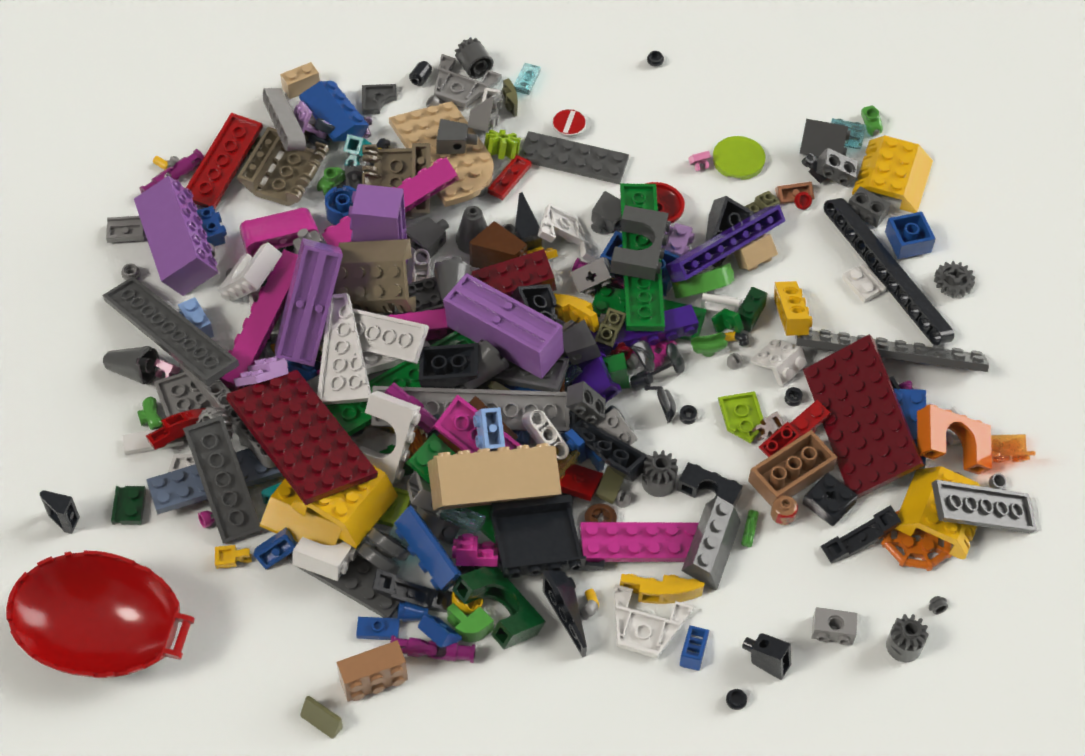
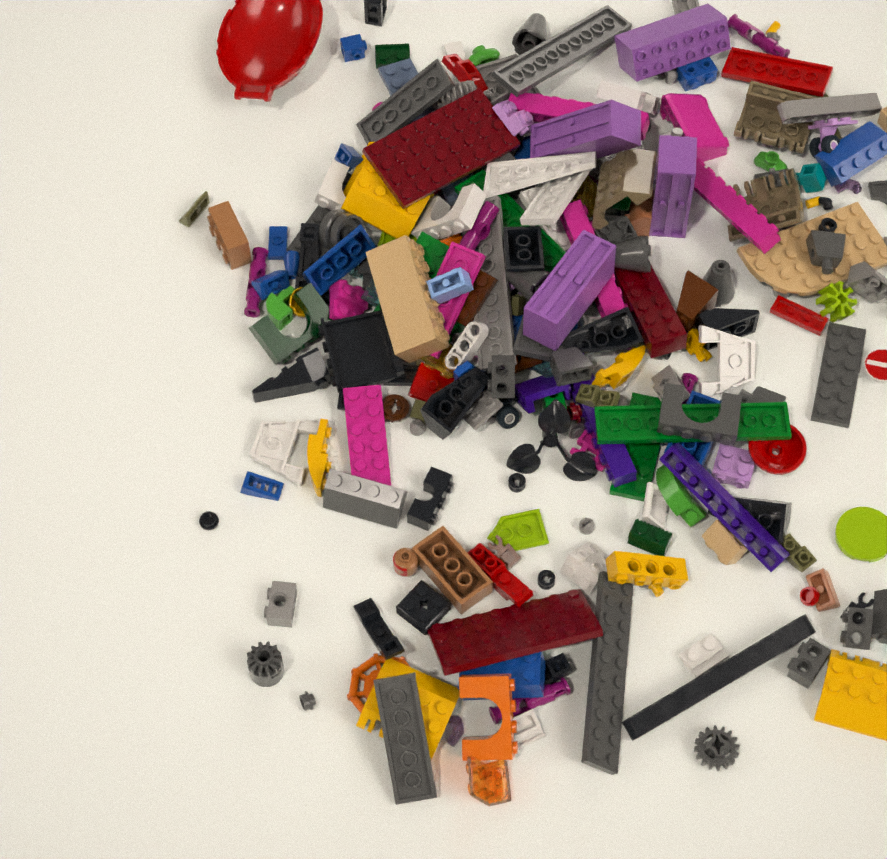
camera: 90 degrees right, 5 degrees up
(113, 540) = (353, 47): none -> blue brick
(130, 268) = (638, 21): light grey plate -> none
(194, 313) = (585, 75): light blue brick -> none
(229, 555) = (343, 129): yellow plate -> none
(338, 203) = (735, 169): blue brick -> none
(419, 268) = (668, 244): white piece -> none
(424, 135) = (830, 222): none -> black bush
(427, 235) = (708, 247): dark grey torso -> none
(592, 604) = (302, 403): light grey arm -> none
(659, 474) = (439, 451): dark grey gear -> none
(700, 158) = (853, 493): bright pink tile -> none
(709, 344) = (600, 498): bright green piece -> none
(727, 319) = (630, 512): green bracket -> none
(733, 336) = (616, 528): black arm -> none
(750, 528) = (388, 535): bright green axle -> none
(769, 654) = (248, 544): black torso -> none
(910, 235) = (769, 701): blue brick -> none
(997, 481) = (448, 768): dark grey hinge -> none

